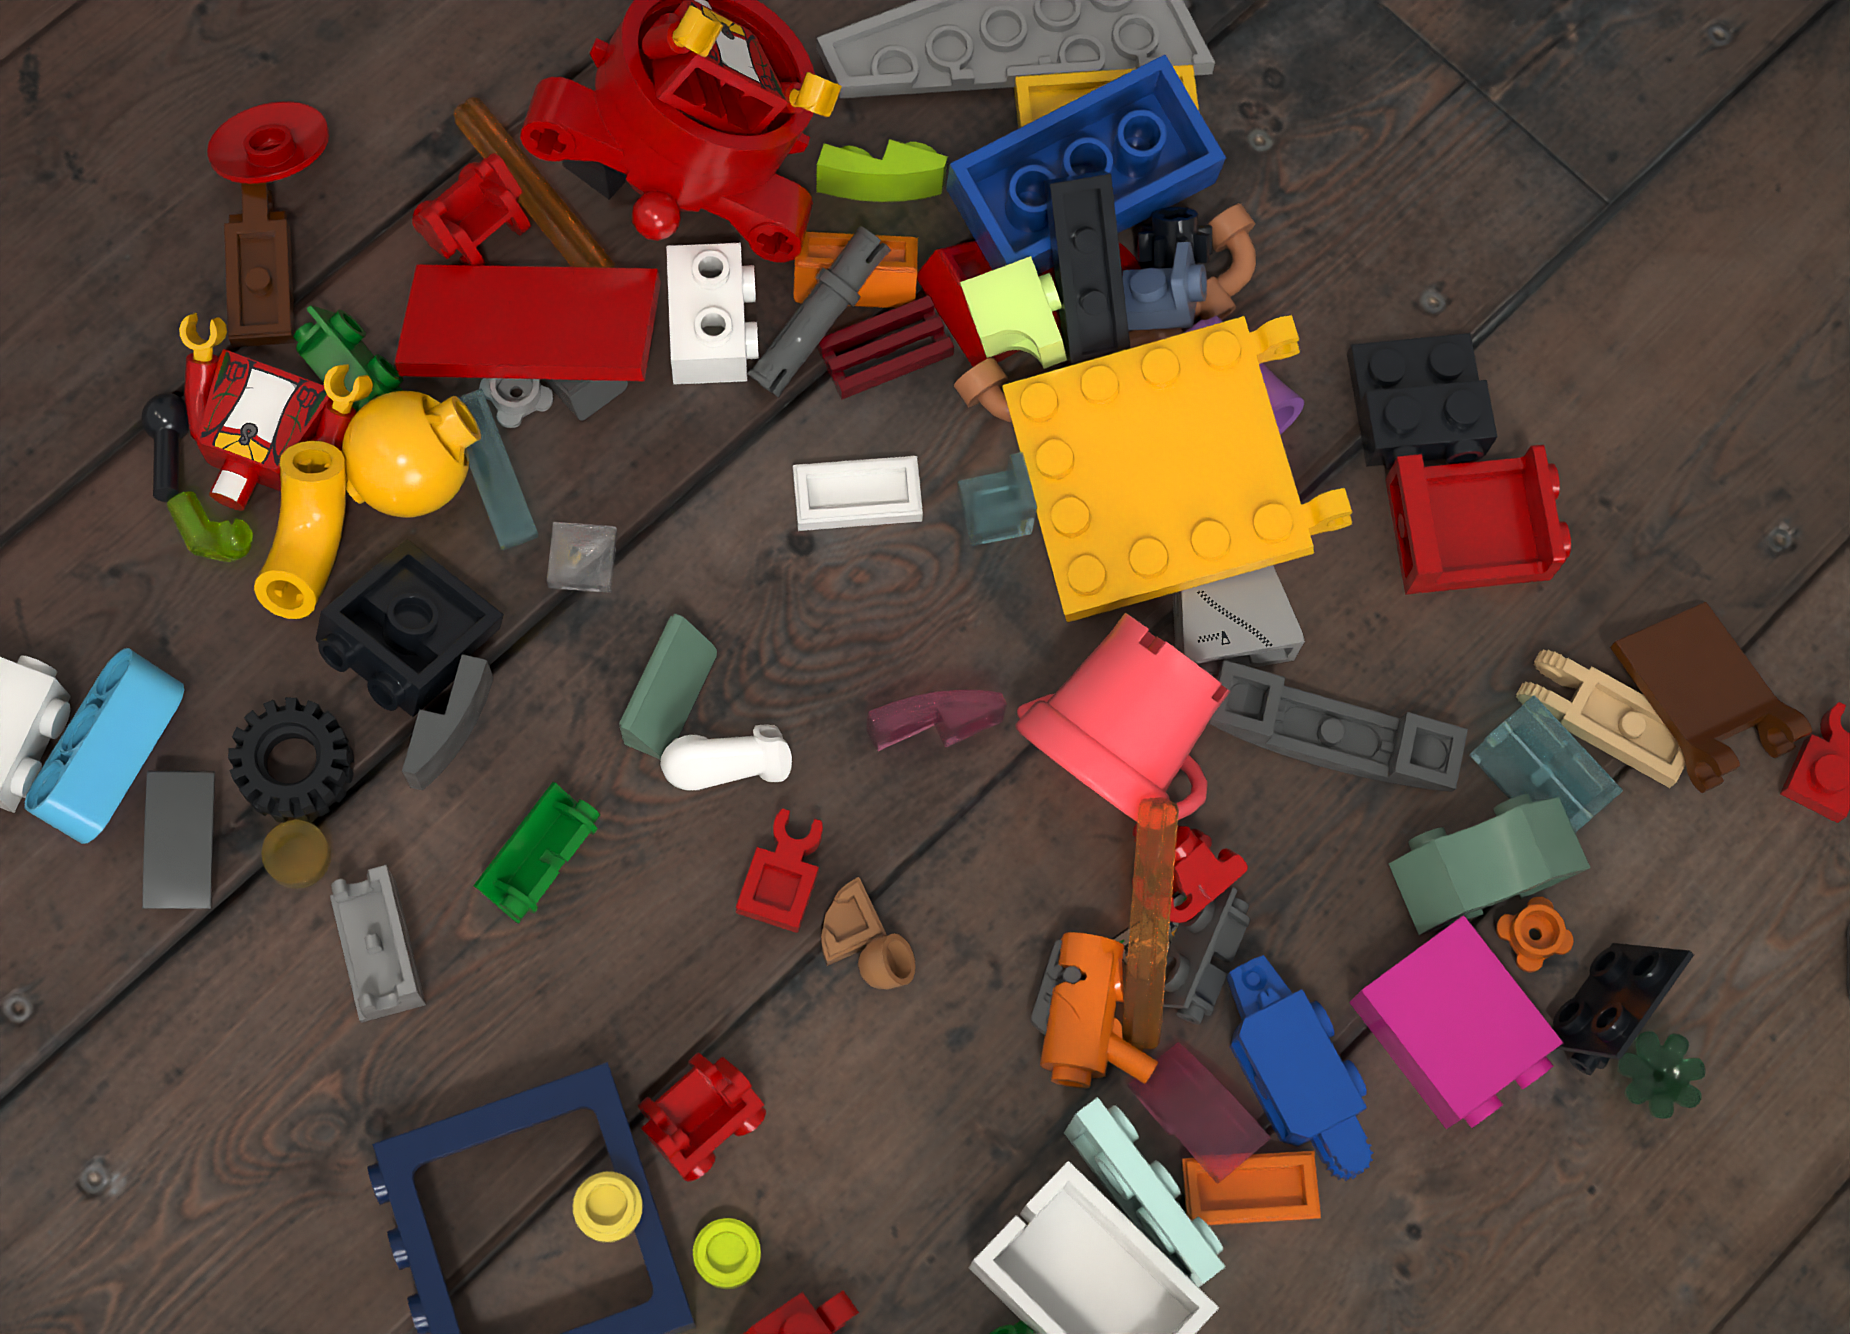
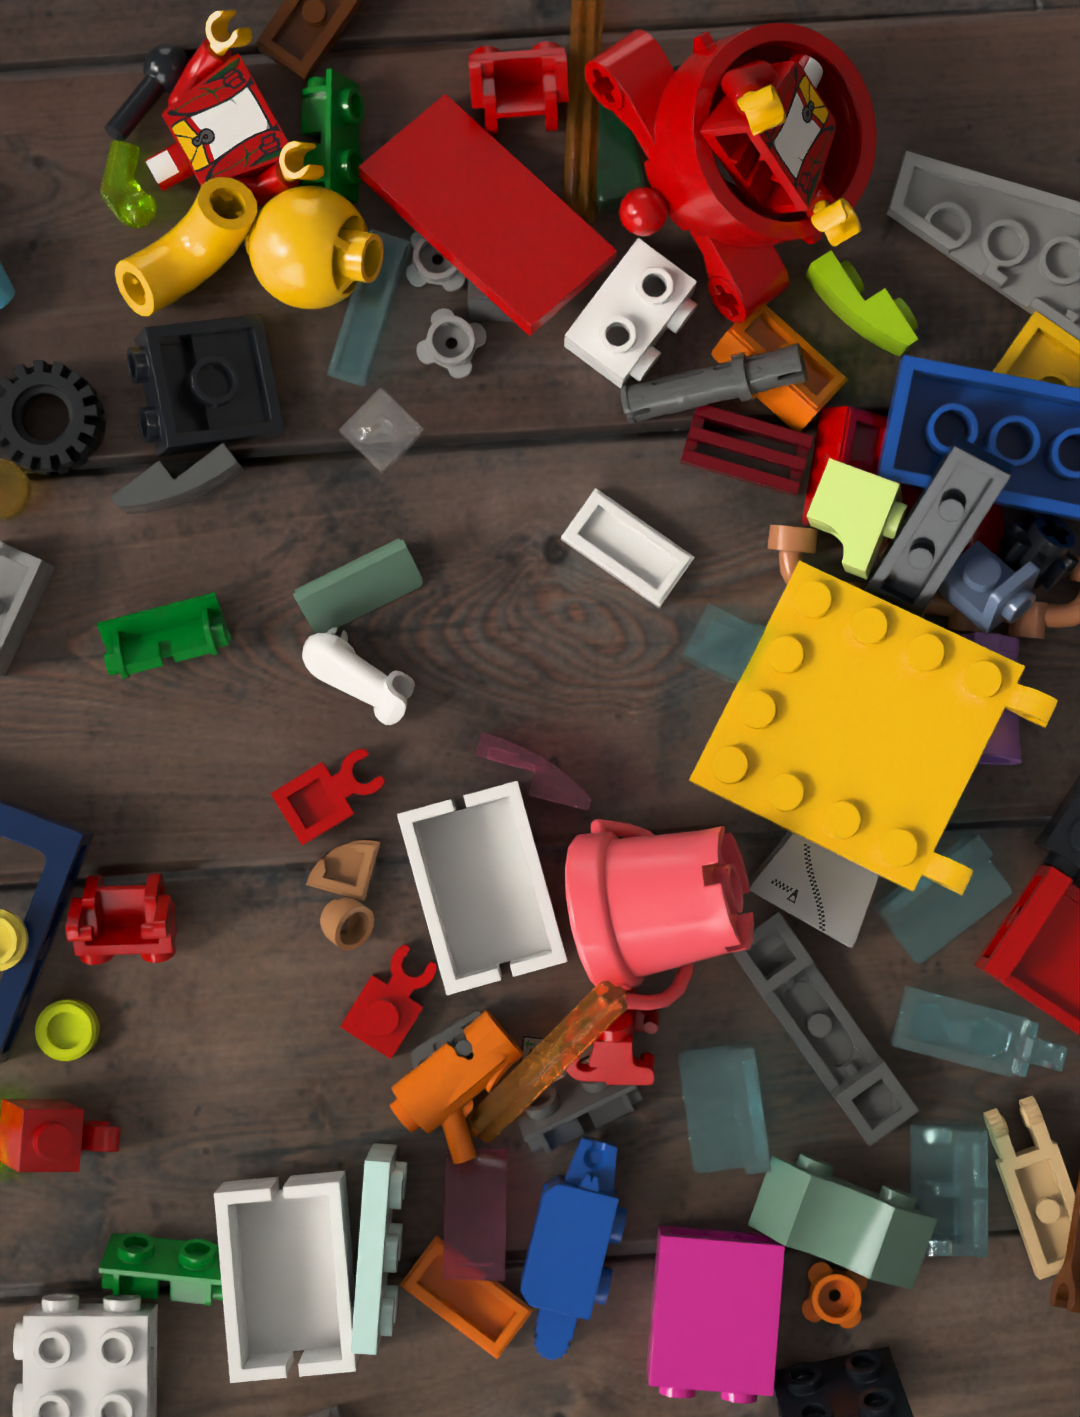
camera: 50 degrees right, 15 degrees up
(577, 430) = (448, 326): none -> light grey plate
(596, 205) = (616, 162): none -> clear green slope
(974, 834) = (482, 887): none -> white piece
(979, 1010) = (385, 1009): none -> red plate
(1320, 857) = (724, 1108): none -> clear light blue panel
(1339, 576) = (937, 915): none -> clear light blue panel
(1453, 640) = (972, 1034): none -> clear light blue hinge

